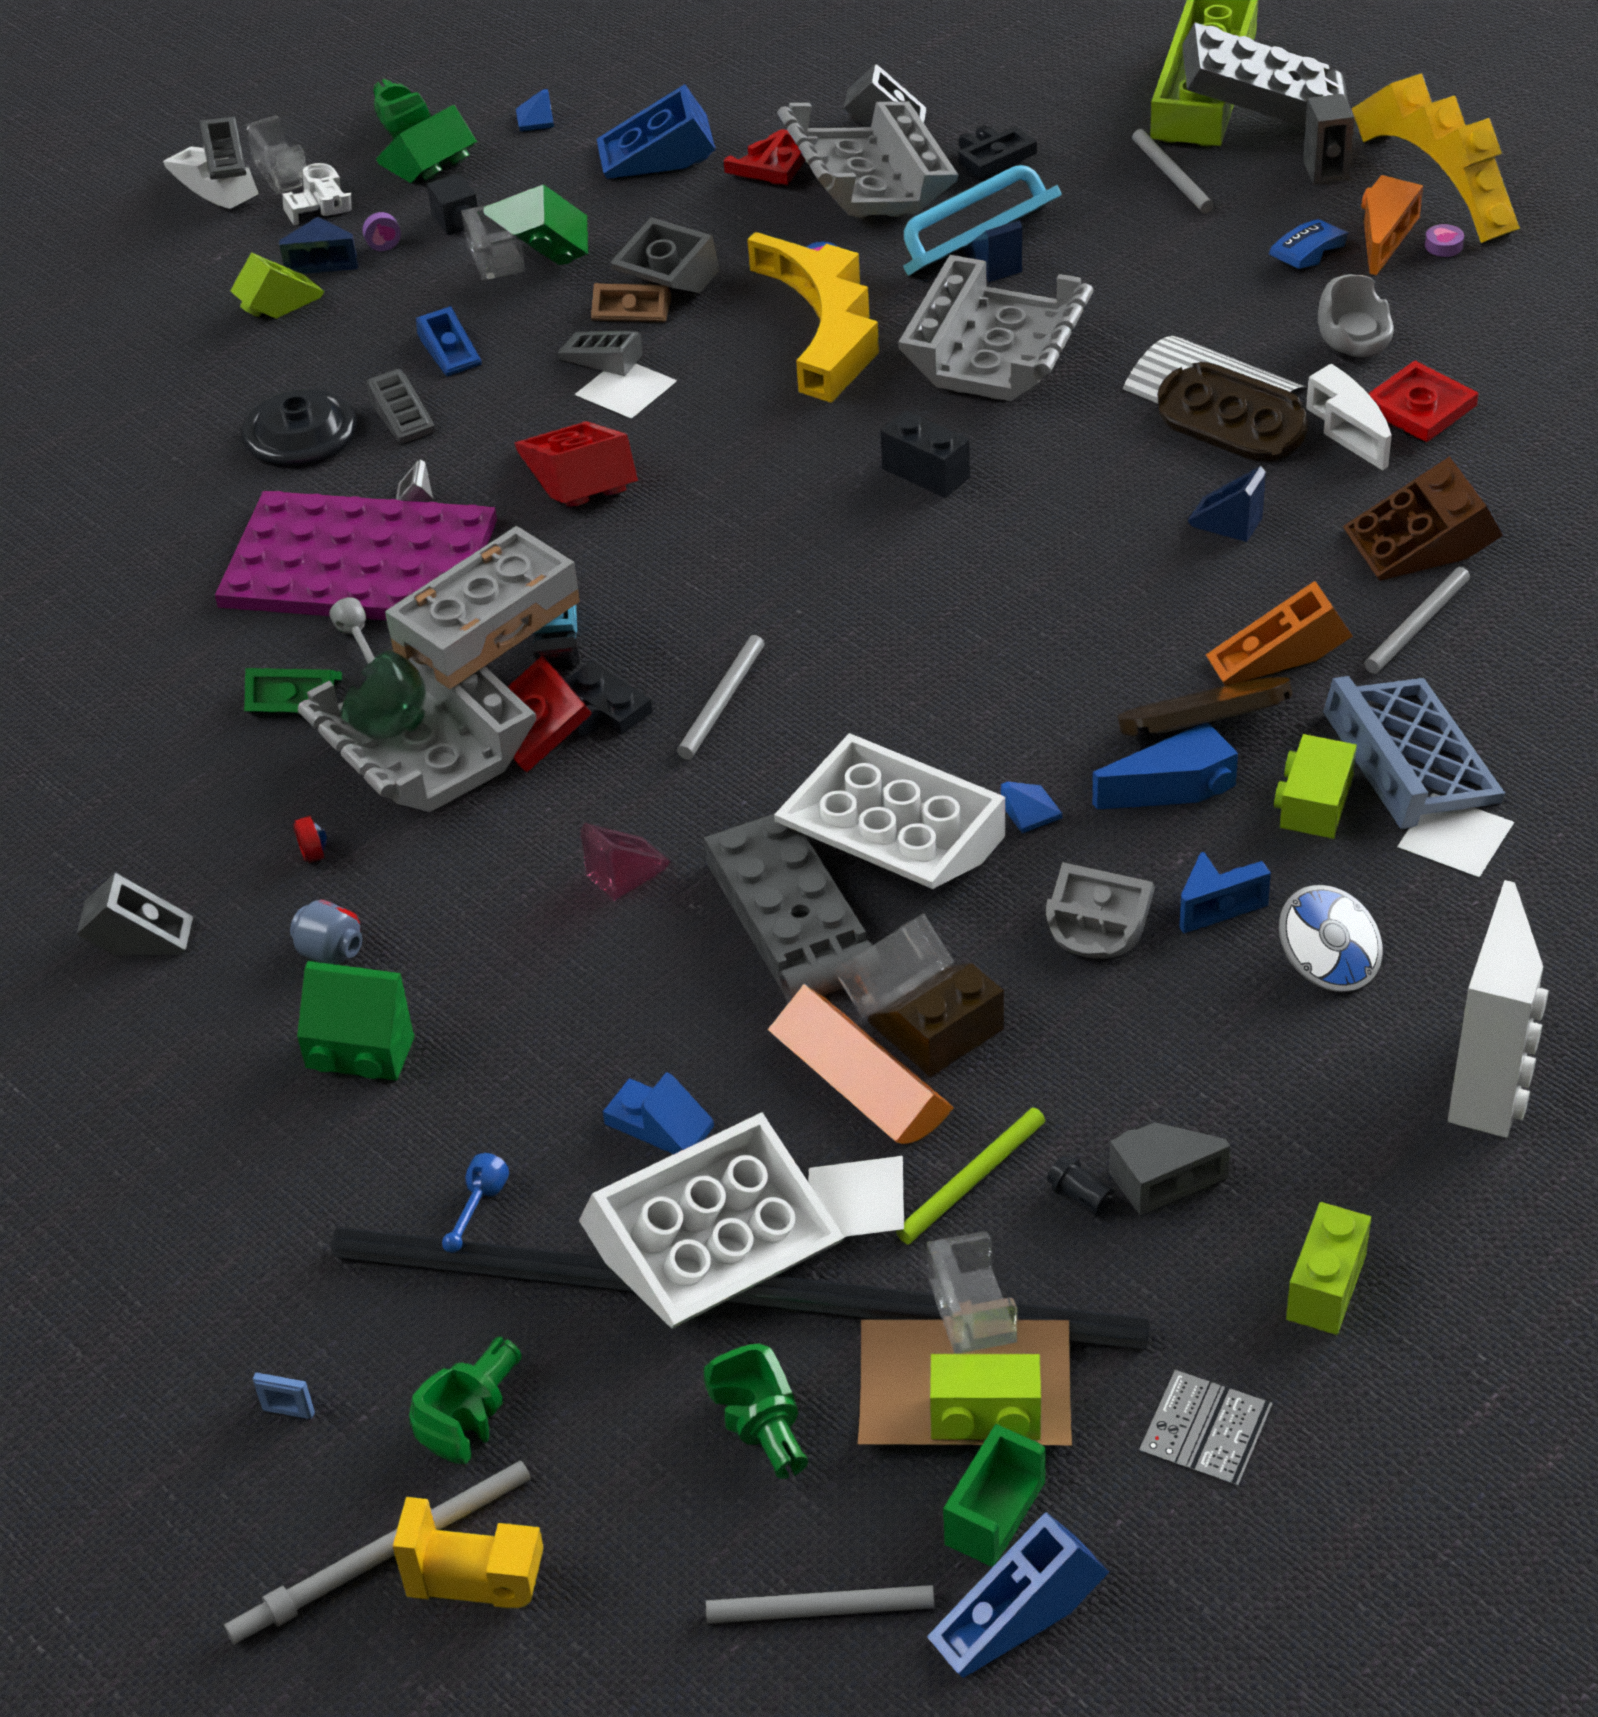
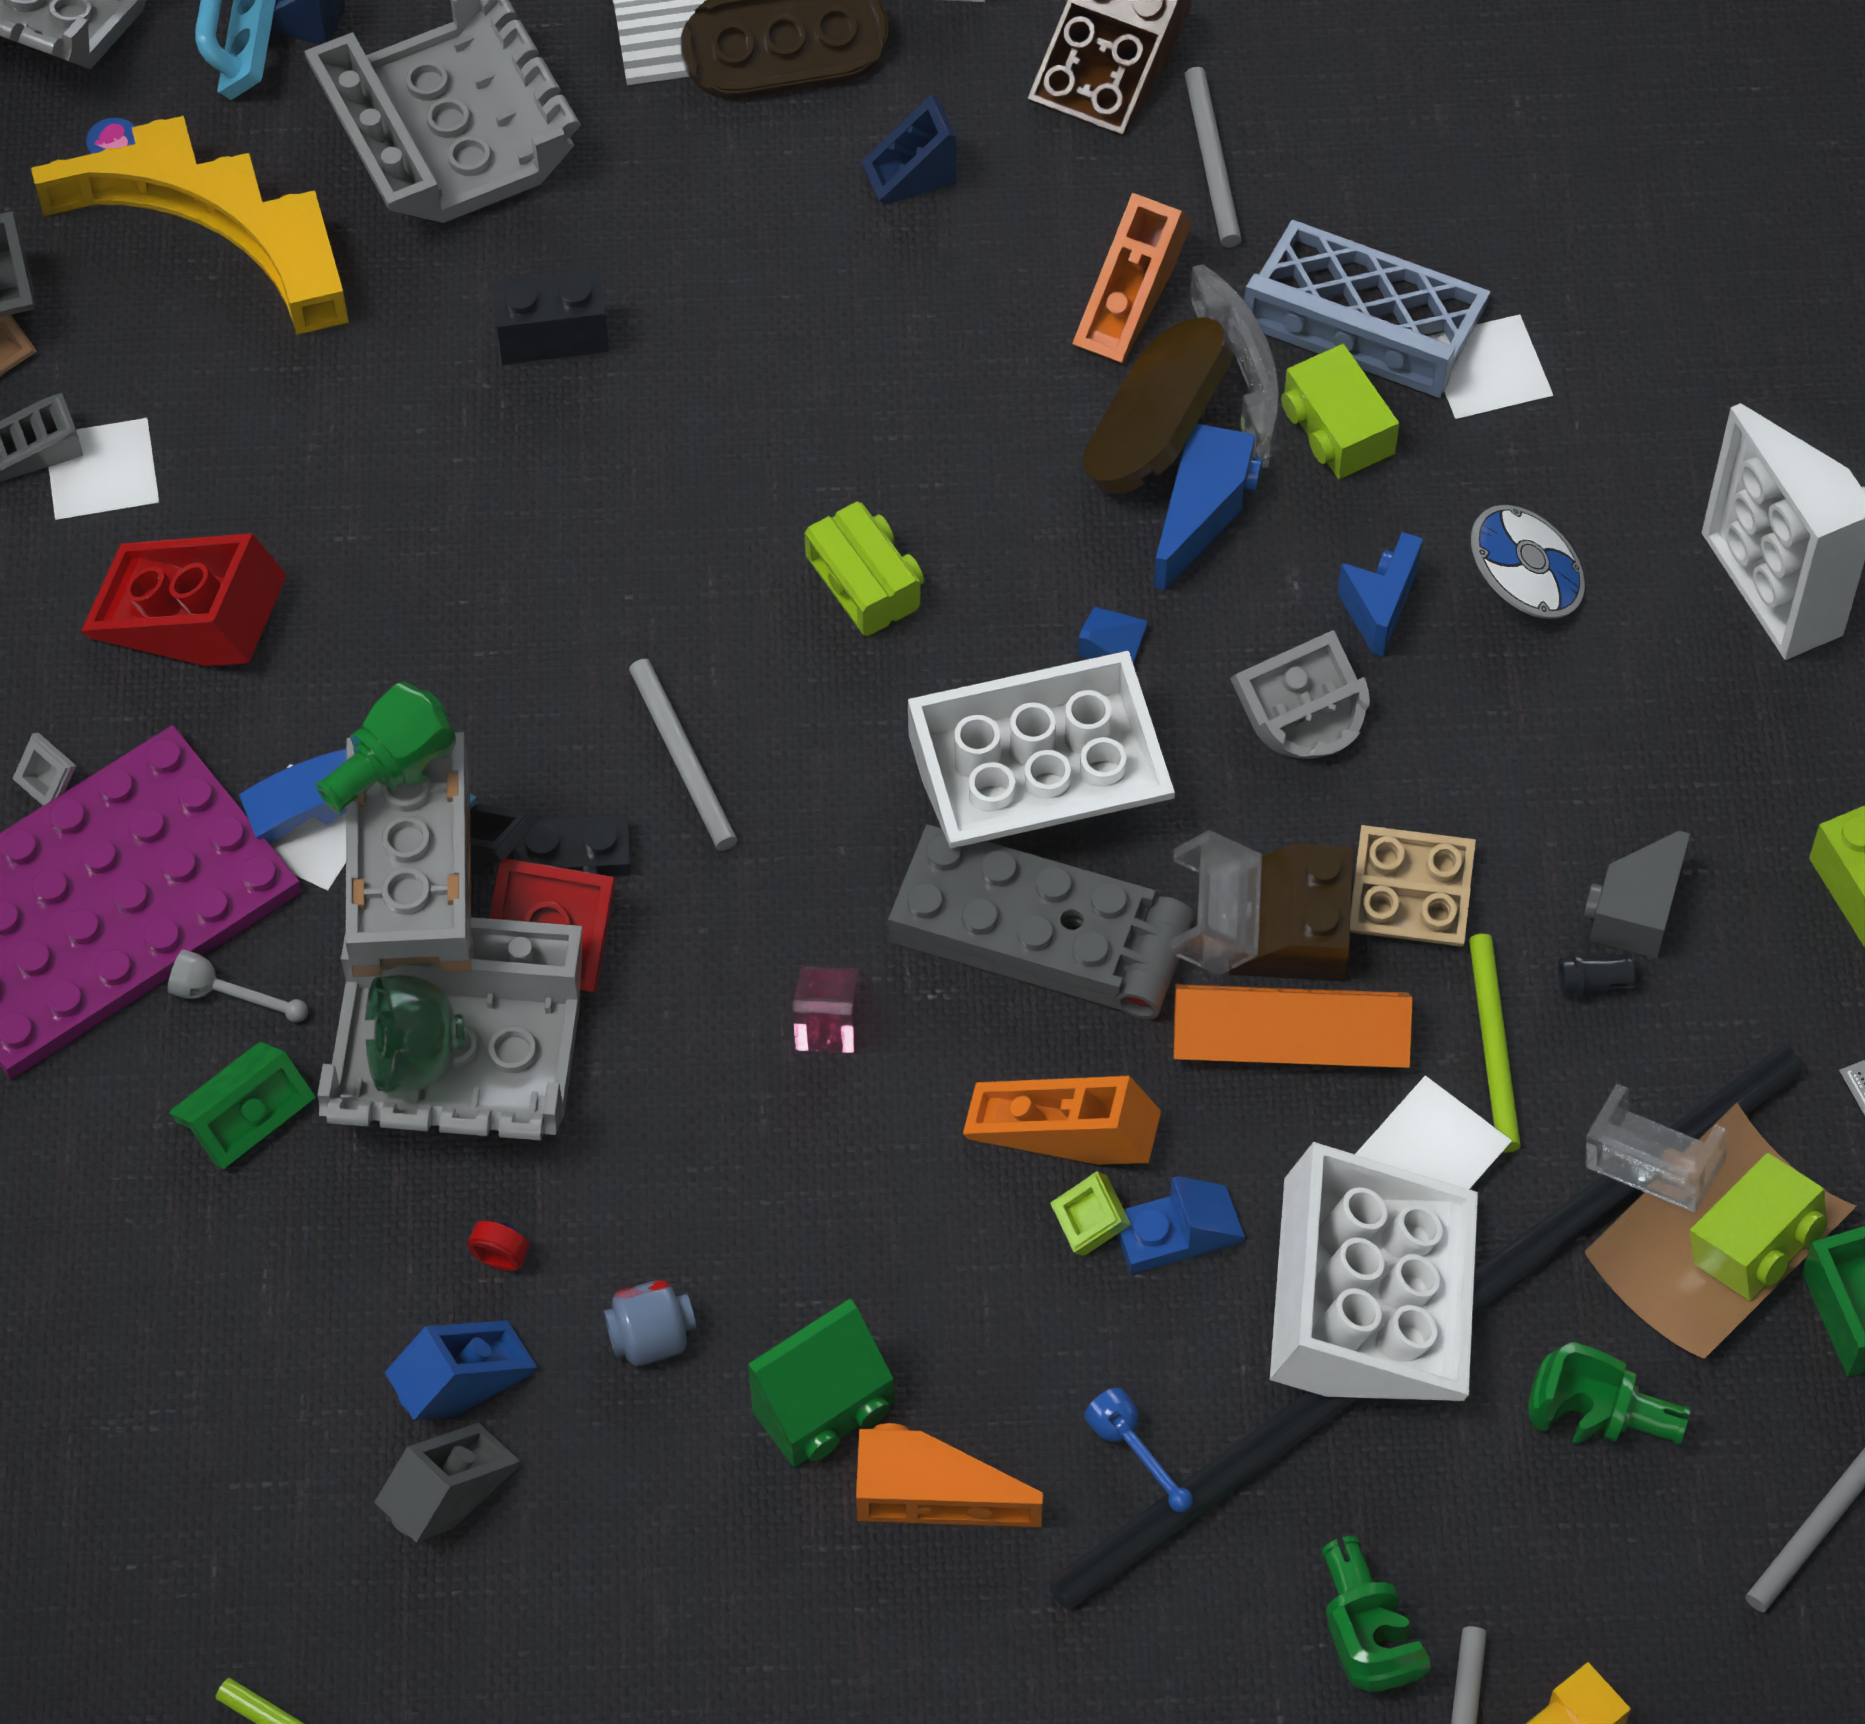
camera: 50 degrees left, 15 degrees up
(212, 877) = (458, 1367): none -> blue slope
(340, 1116) = (926, 1481): none -> orange slope
(519, 530) = (392, 745): none -> green piece
(616, 1068) = (1090, 1213): none -> lime tile
(670, 1013) = (1066, 1118): none -> orange slope
(932, 674) = (864, 568): none -> lime brick
(1032, 1056) = (1412, 885): none -> tan slope
(1267, 753) = (1218, 300): none -> clear slope

